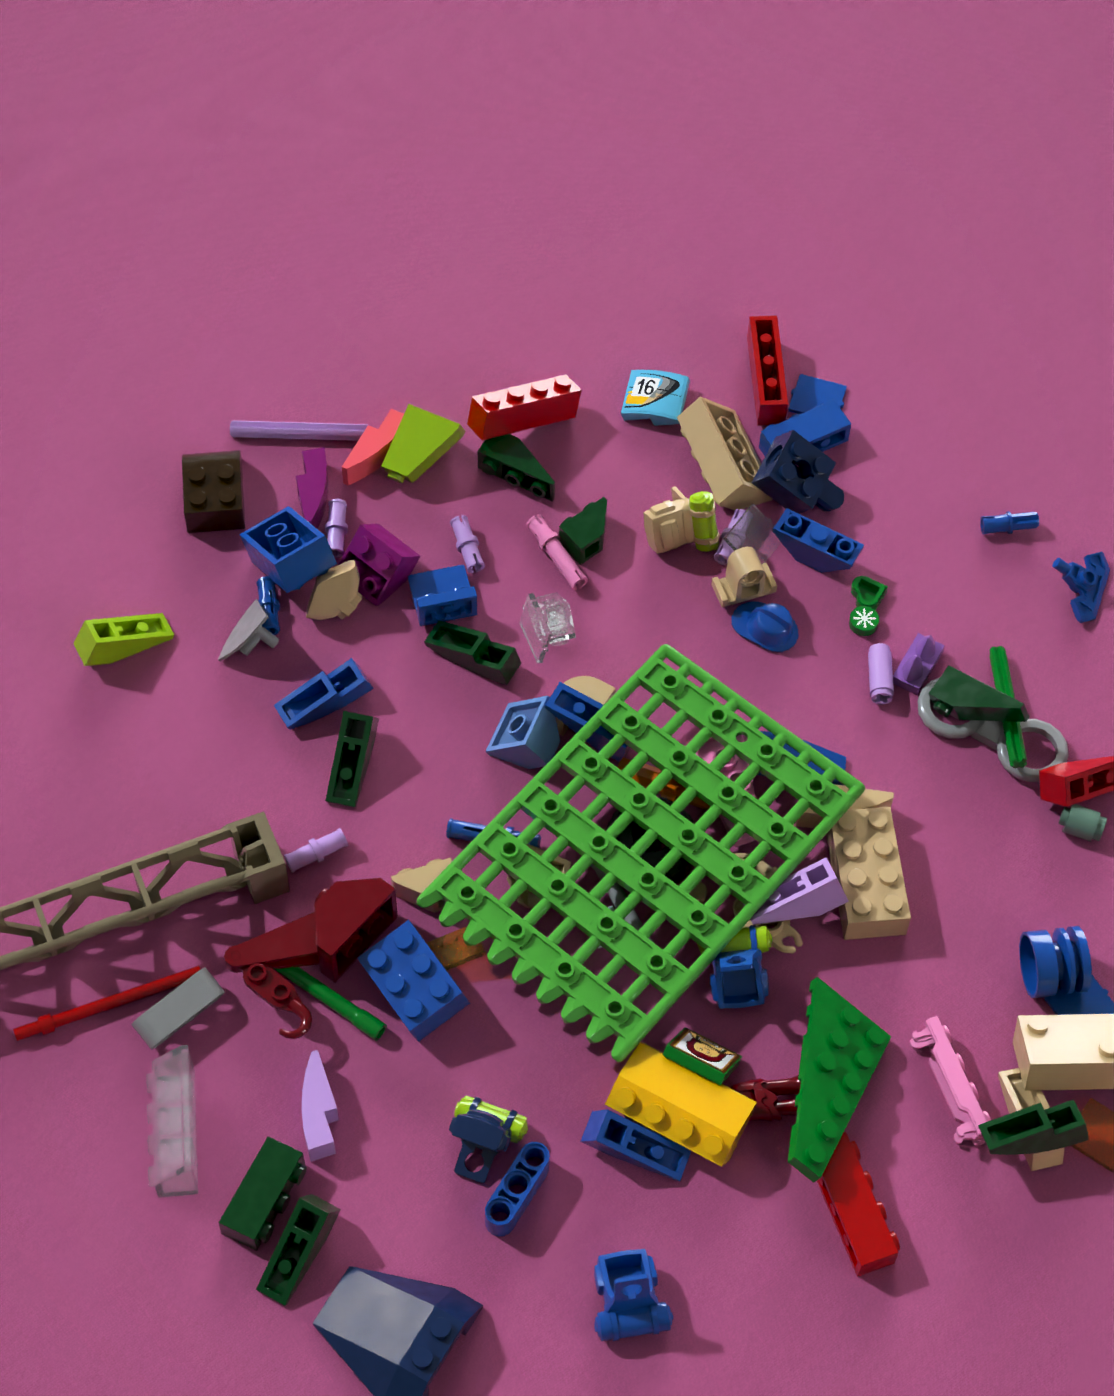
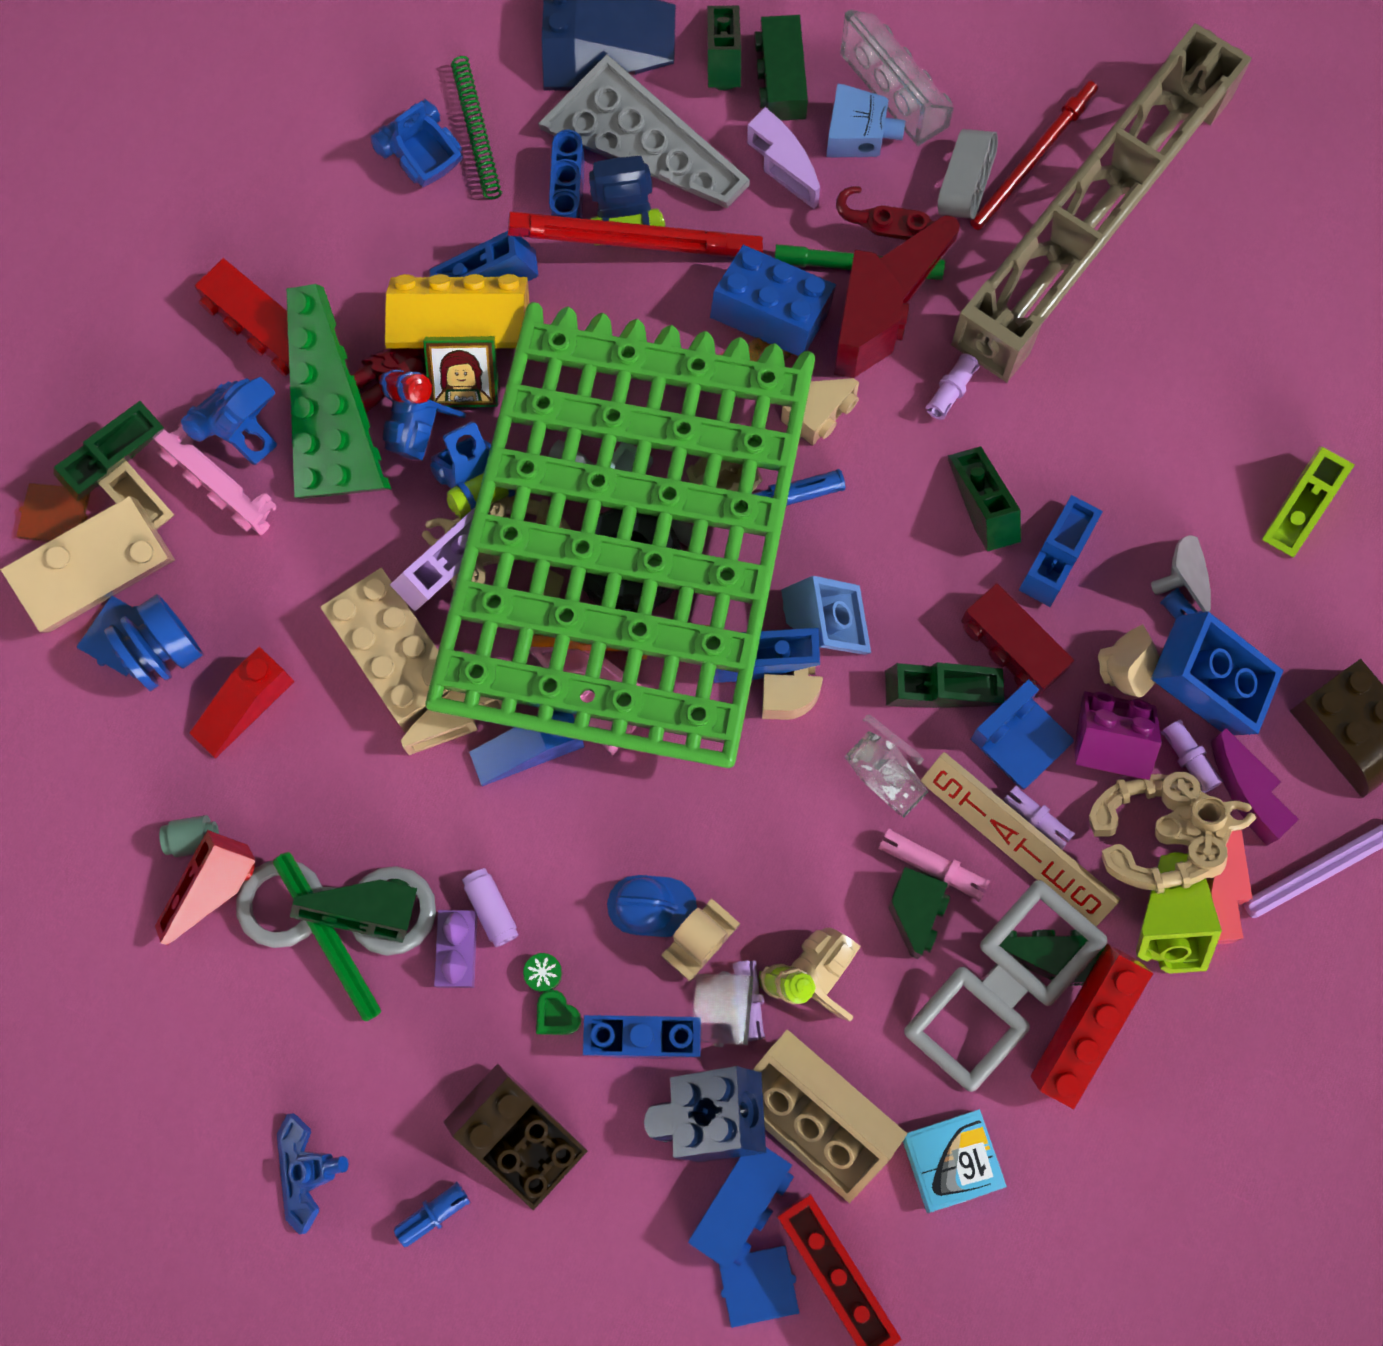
camera: 155 degrees right, 15 degrees up
(234, 1103) = (860, 124): none -> medium blue torso
(381, 484) = (1183, 826): none -> tan piece
(403, 652) = (1015, 639): none -> dark red brick
(429, 1209) = (626, 120): none -> light grey wing
(489, 537) = (1019, 839): none -> tan tile
(493, 1090) = (629, 235): none -> red piece
(561, 457) = (1005, 985): none -> light grey bar
(566, 1297) = (467, 120): none -> green piece
(763, 1034) = (412, 412): none -> blue piece
(913, 1115) = (229, 413): none -> blue piece
(934, 538) = (514, 1137): none -> dark brown slope
(1001, 898) = (240, 701): none -> red slope

